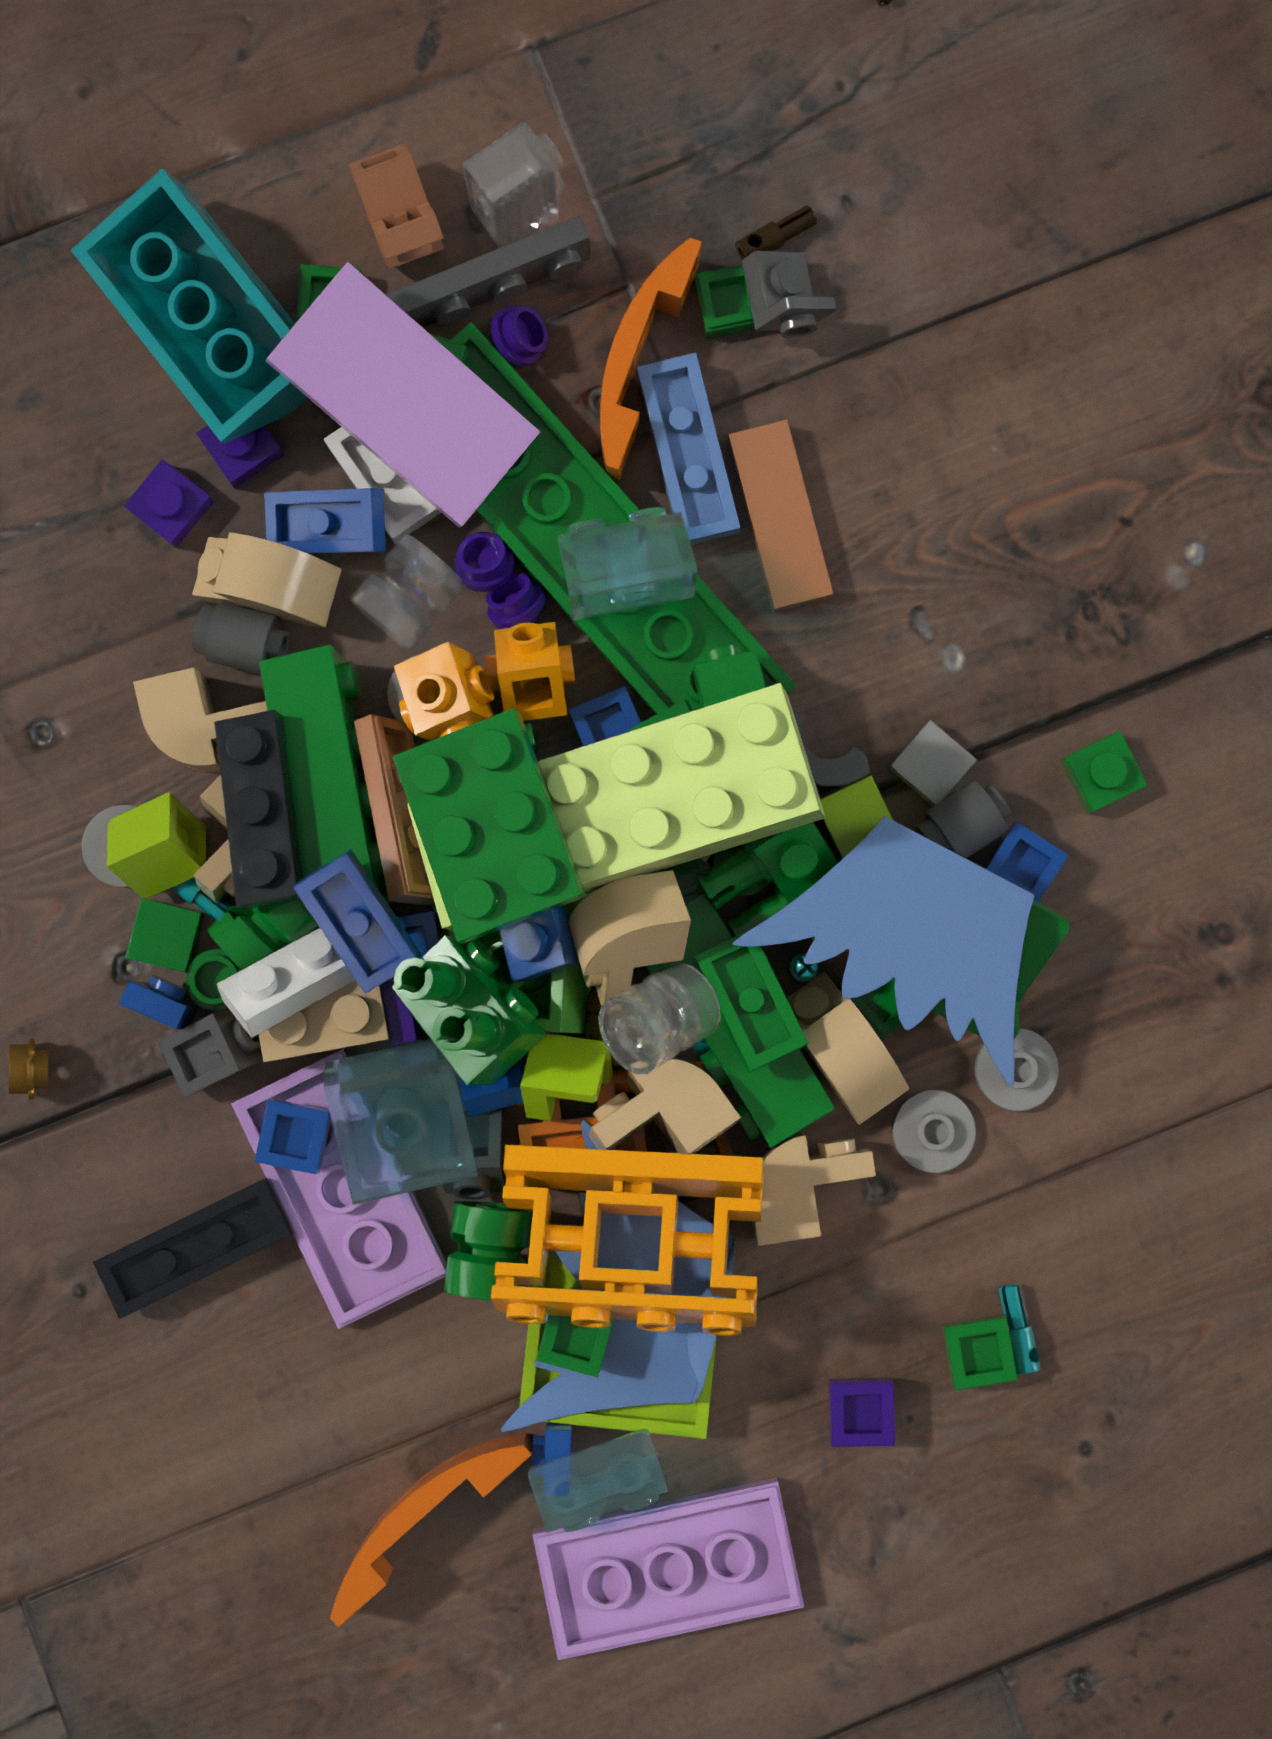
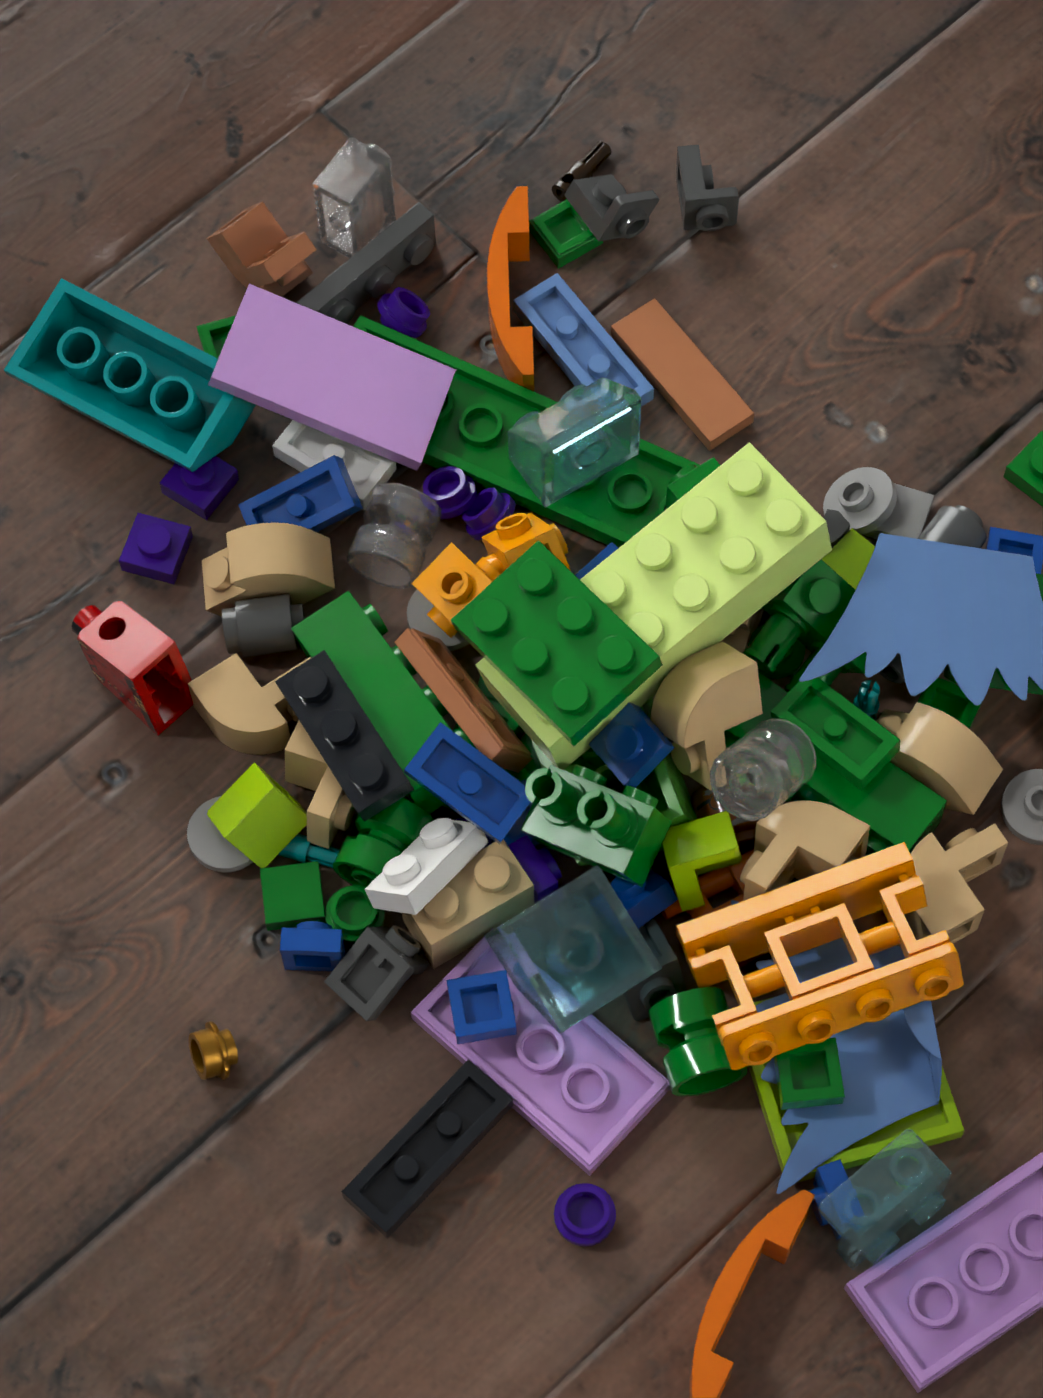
camera: 15 degrees left, 20 degrees down
(90, 631) = (122, 650): none -> red torso
(317, 1368) = (584, 1214): none -> dark purple plate
(886, 302) = (699, 202): none -> dark grey bracket
(898, 736) = (863, 498): none -> light grey piece

